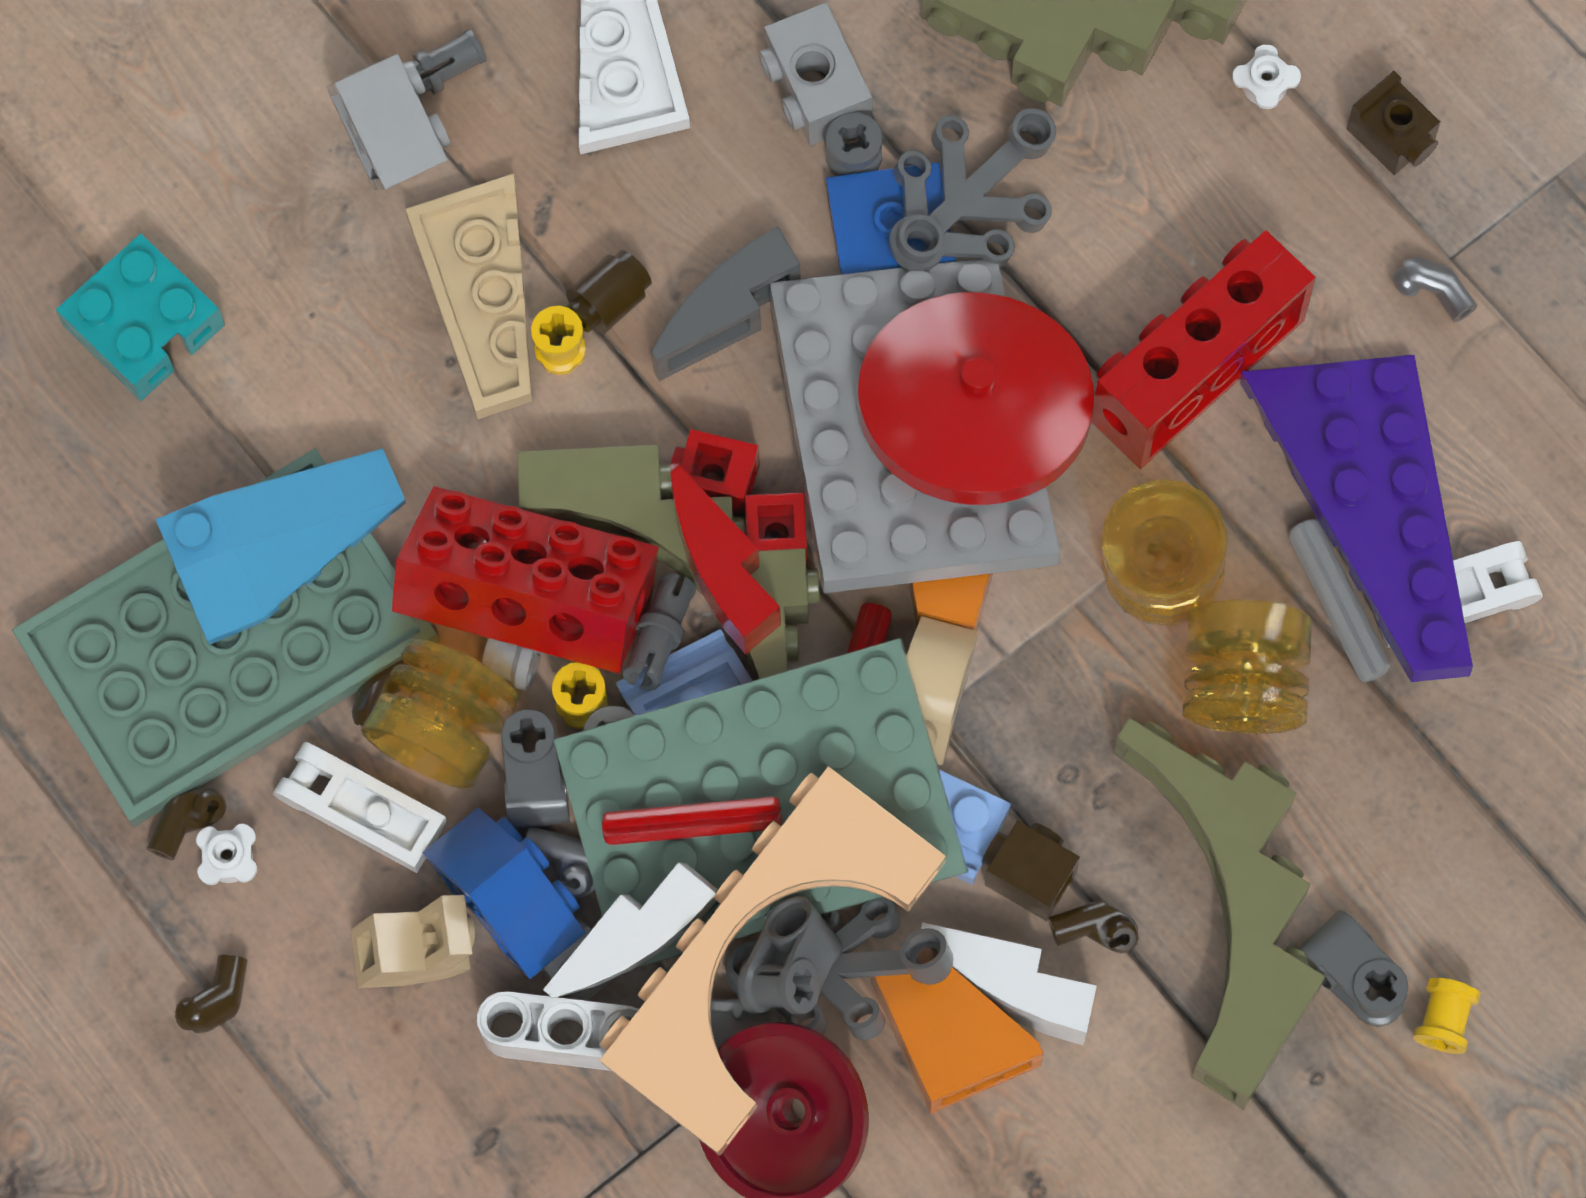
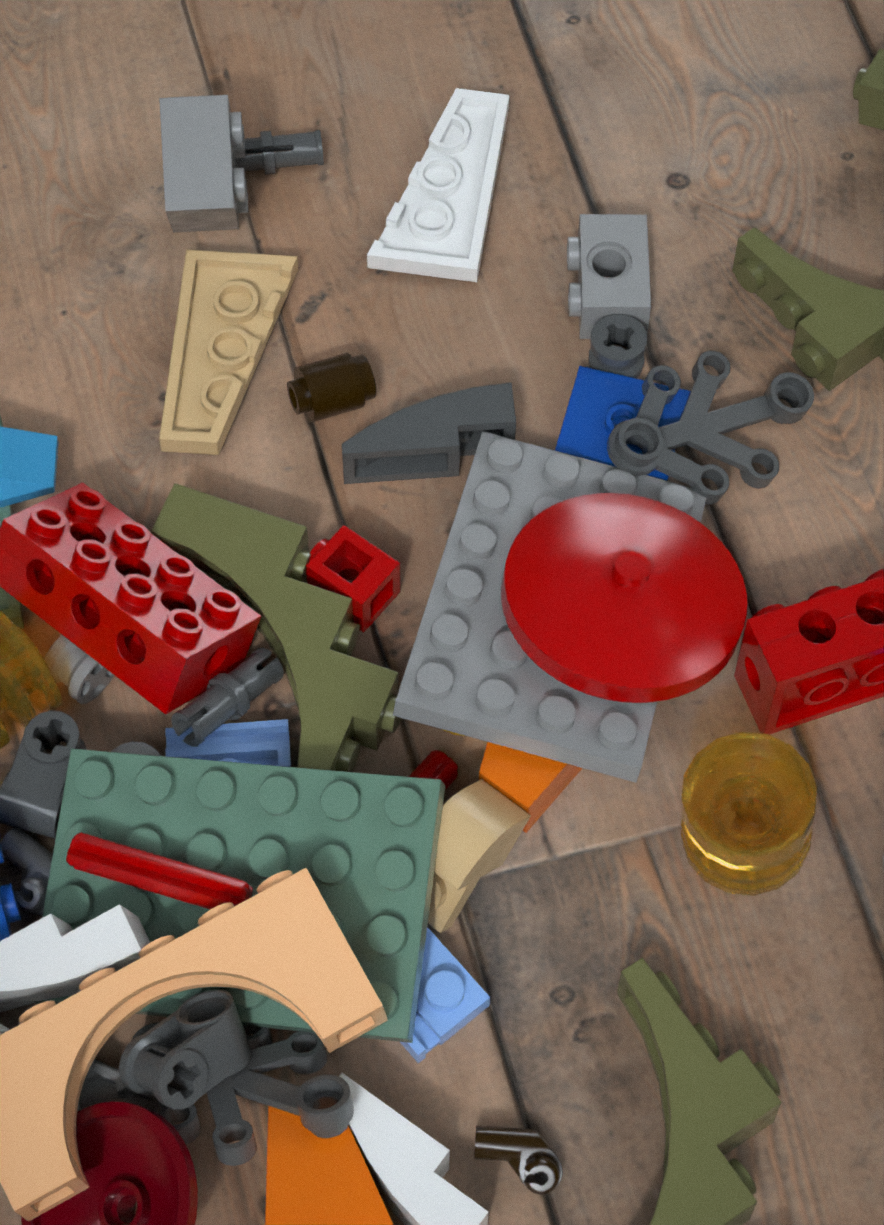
camera: 20 degrees right, 10 degrees down
(545, 328) = (265, 408): yellow bush -> none
(566, 686) = (123, 708): yellow bush -> none
(723, 564) = (309, 650): red slope -> none
(776, 512) = (383, 632): red plate -> none
(1030, 867) = (480, 1067): dark brown brick -> none
(1247, 666) = (784, 956): clear yellow wheel -> none

